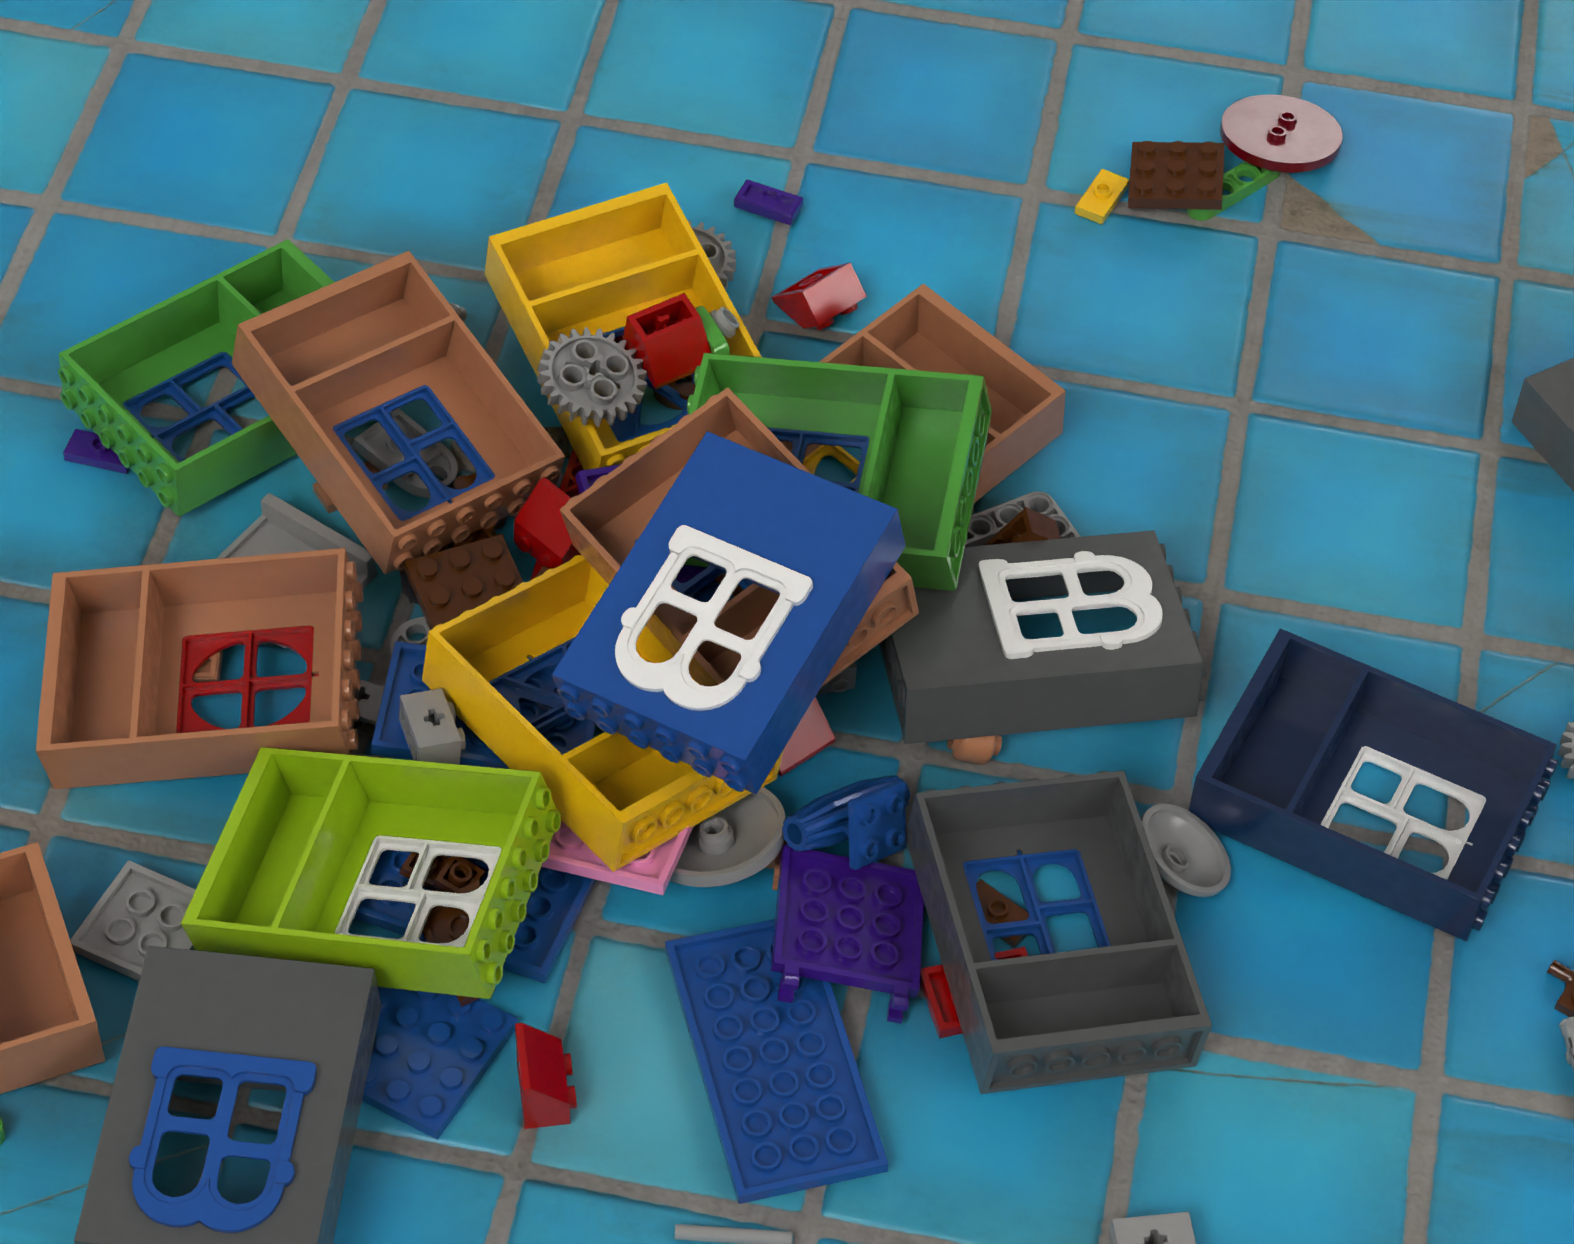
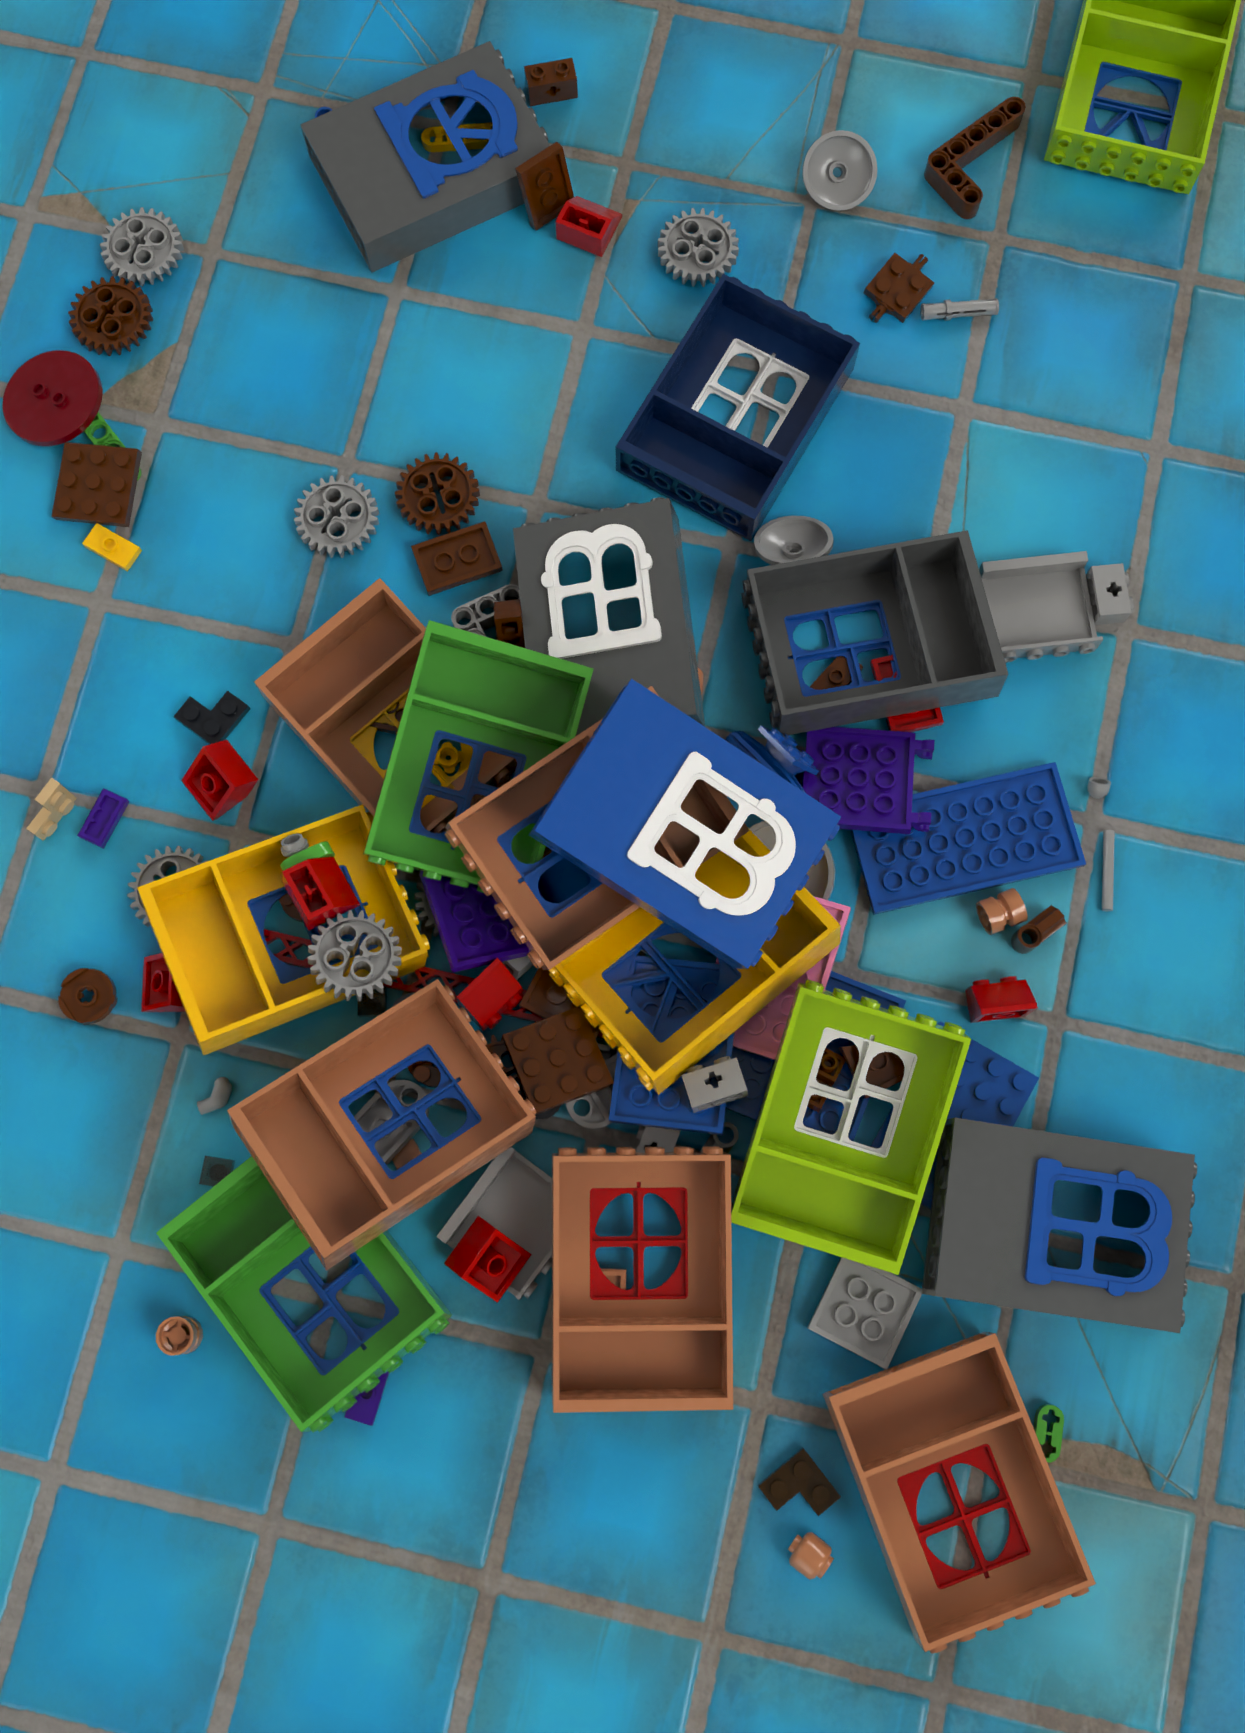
camera: 85 degrees left, 25 degrees up
(176, 274) = (179, 1335): none -> nougat wheel
(238, 531) = (487, 1259): none -> red slope
(553, 185) = (72, 992): none -> reddish brown plate
(644, 1136) = (1038, 929): none -> reddish brown piece
(668, 1091) = (1004, 910): none -> nougat wheel
(777, 156) = (56, 803): none -> tan plate
(855, 1222) = (1098, 787): none -> light grey hinge
(891, 283) = (214, 724): none -> black plate
(1122, 501) = (457, 558): none -> reddish brown plate
(1123, 1156) = (1041, 605): none -> light grey panel
(1164, 389) = (336, 516): none -> light grey gear
(1208, 484) = (460, 487): none -> reddish brown gear
(1397, 178) = (110, 316): none -> reddish brown gear
(1496, 201) = (142, 246): none -> light grey gear

